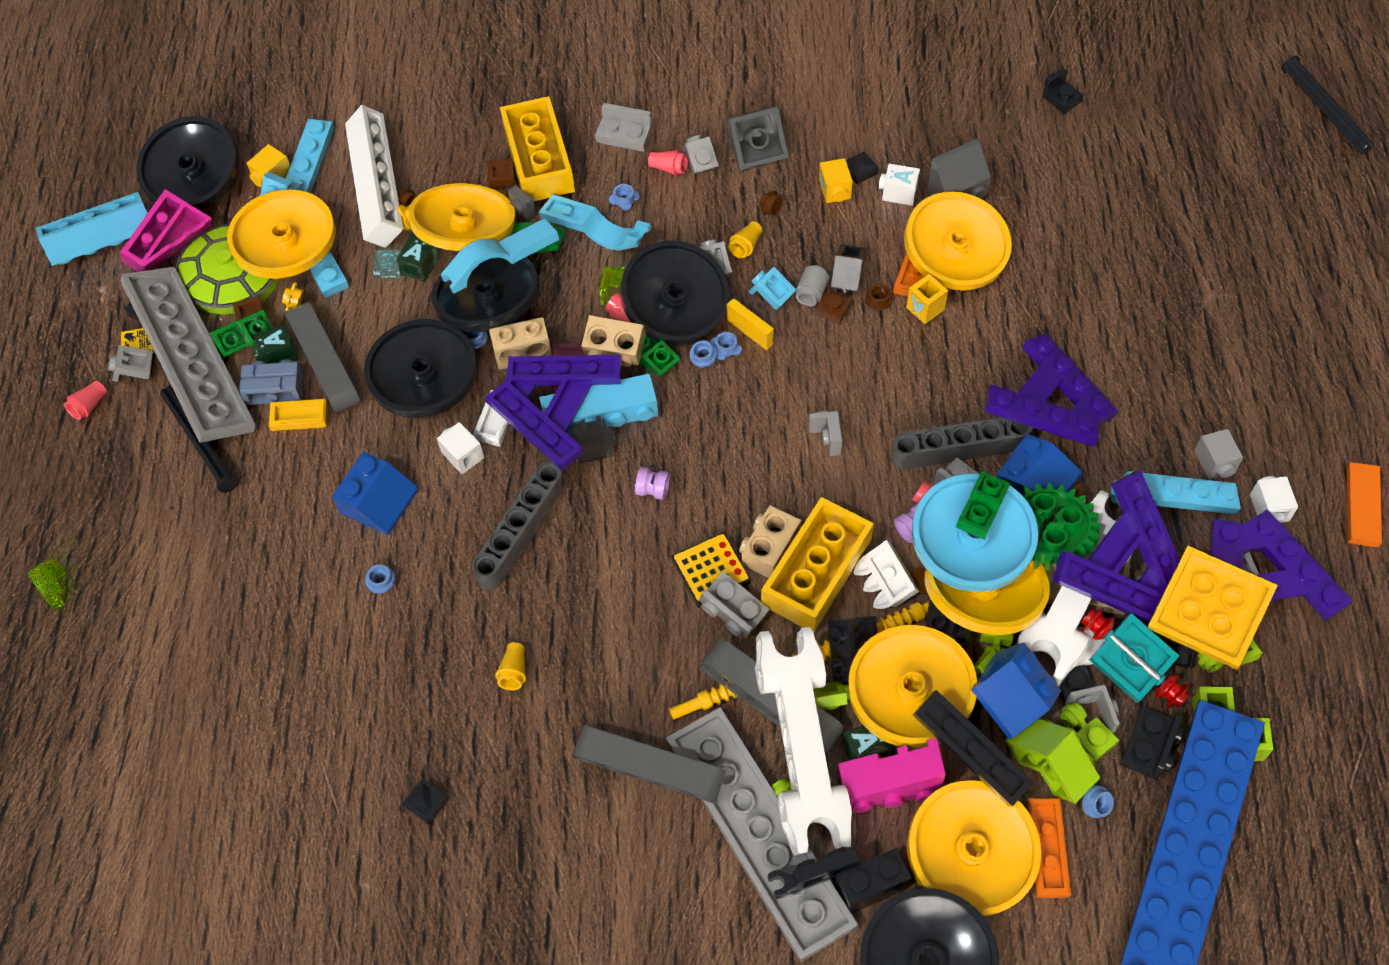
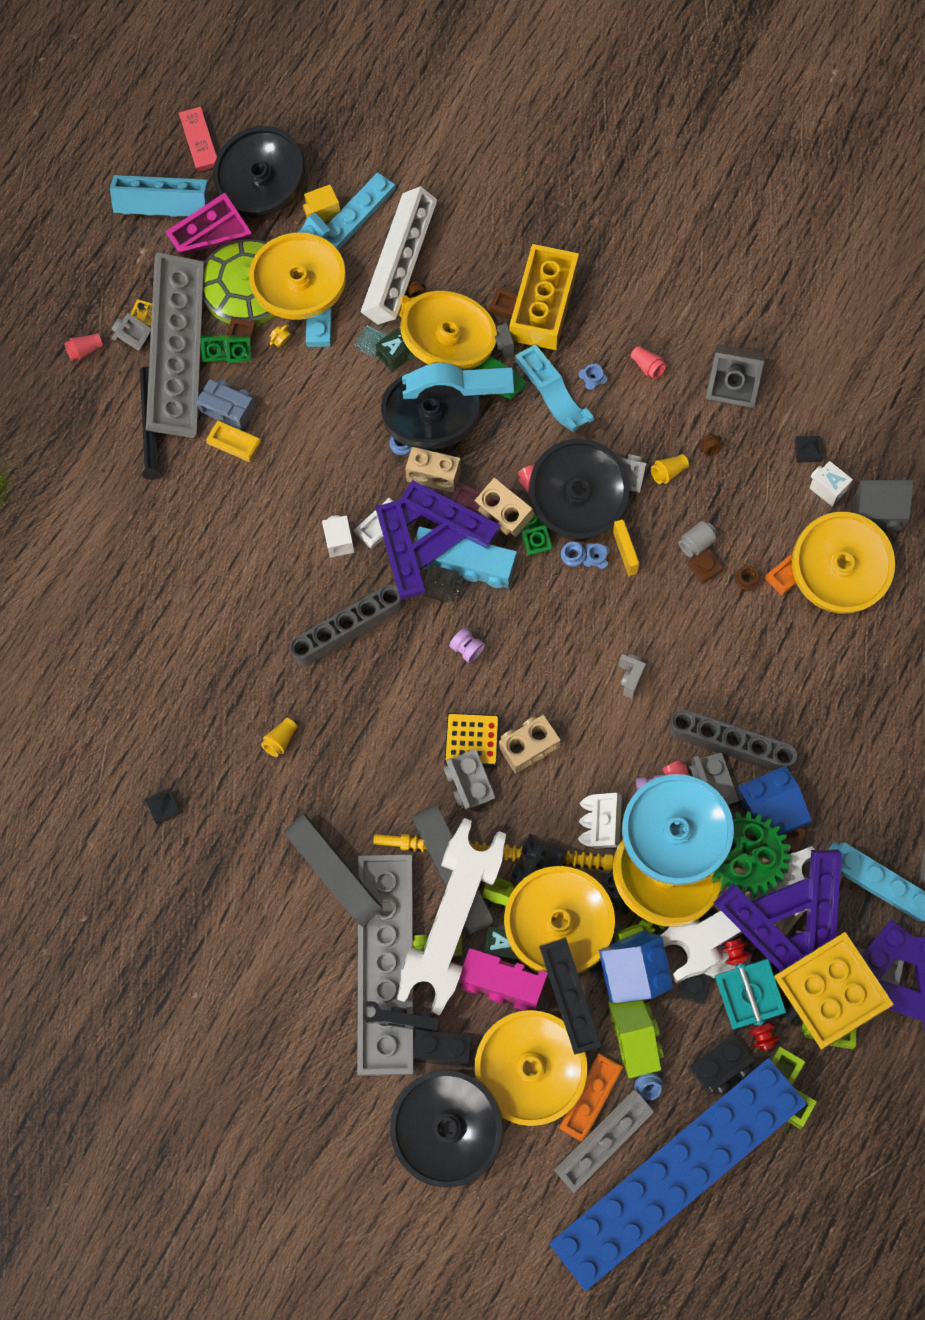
camera: 30 degrees right, 10 degrees up
(107, 167) = (198, 139): none -> coral tile
(274, 345) = (244, 373): clear green brick -> none
(322, 357) = (275, 401): dark grey beam -> none
(374, 493) = (254, 541): blue slope -> none
(376, 572) = (219, 607): medium blue plate -> none
(420, 368) = (343, 452): black dish -> none
(611, 277) = (535, 445): clear neon green bracket -> none
(624, 127) = (630, 310): light grey bracket -> none
(700, 154) = (678, 368): light grey bracket -> none
(772, 287) = (664, 524): medium azure bracket -> none
(817, 564) = (552, 782): yellow brick -> none
(835, 180) = (777, 452): yellow brick -> none
(848, 268) = (737, 538): arch -> none
(927, 298) = (783, 602): yellow brick -> none
(983, 505) = (694, 812): green slope -> none
(1030, 403) = (804, 743): dark purple plate -> none
(1090, 882) = (603, 1141): none -> light grey plate
(1095, 736) = (679, 1036): lime plate -> none
(1107, 706) = (706, 1019): light grey bracket -> none

